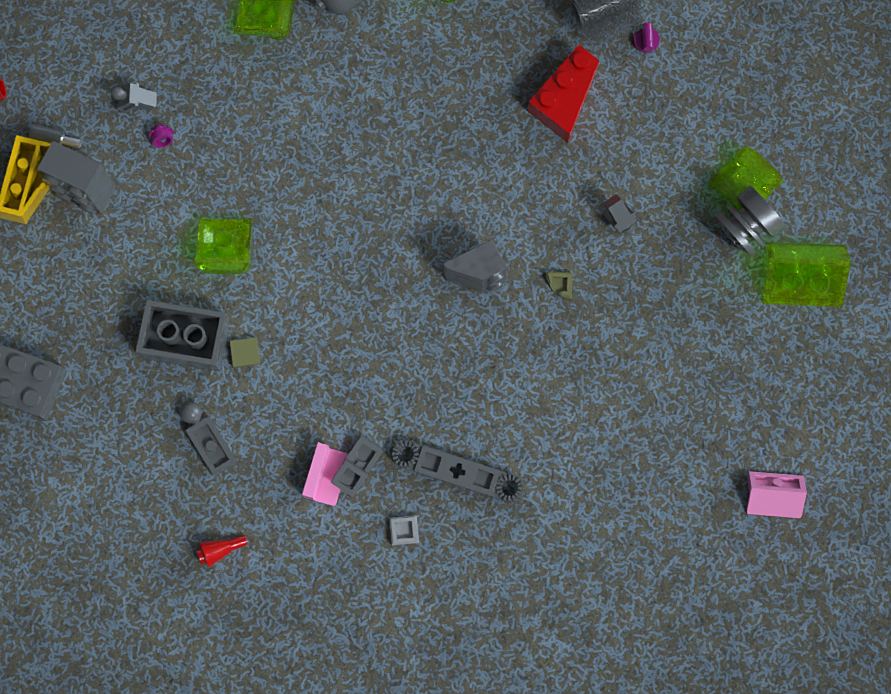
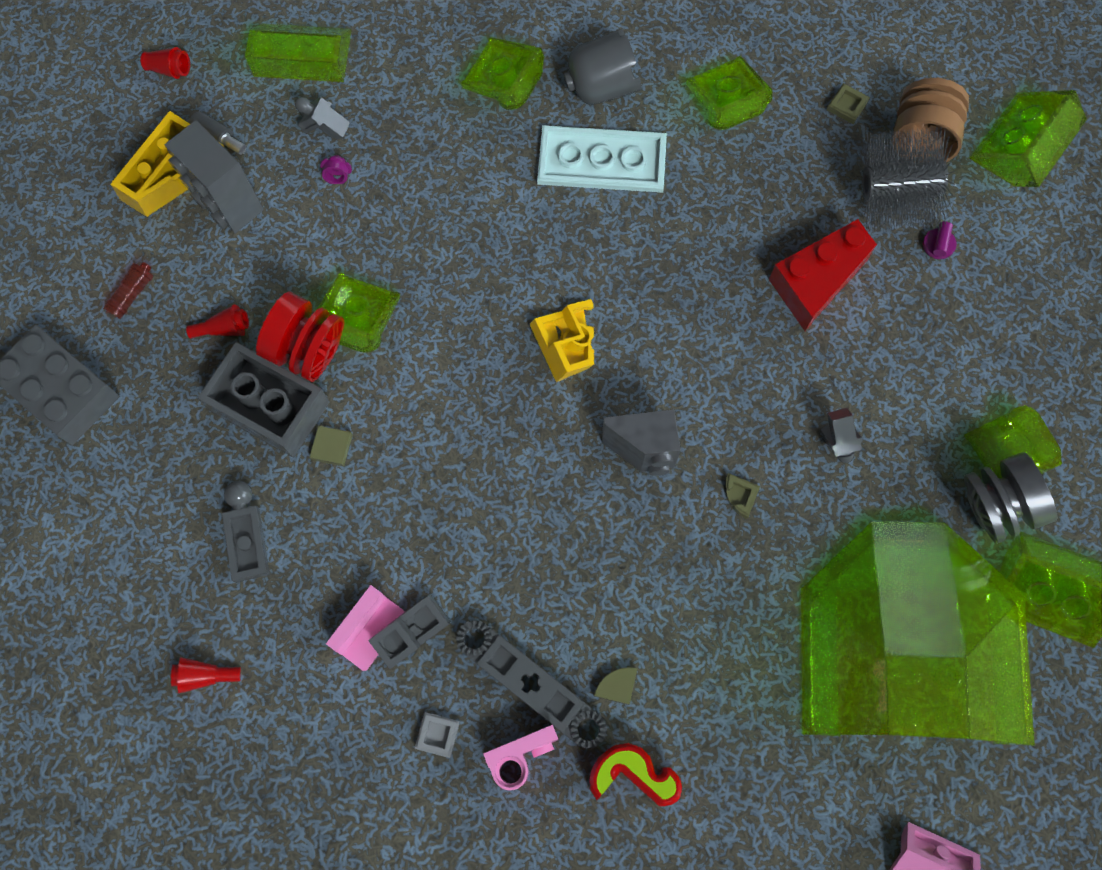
camera: 20 degrees right, 5 degrees down
(39, 285) = (128, 290): none -> clear red piece
(91, 45) = (298, 52): none -> clear neon green slope
(126, 287) = (228, 322): none -> red cone
(196, 279) = (299, 336): none -> red wheel
(367, 56) = (602, 158): none -> light aqua tile
(398, 218) = (571, 351): none -> yellow slope
(477, 510) = (537, 743): none -> bright pink plate
(519, 451) = (617, 686): none -> olive tile
(552, 501) = (637, 767): none -> animal
(714, 343) = (914, 641): none -> clear neon green windscreen

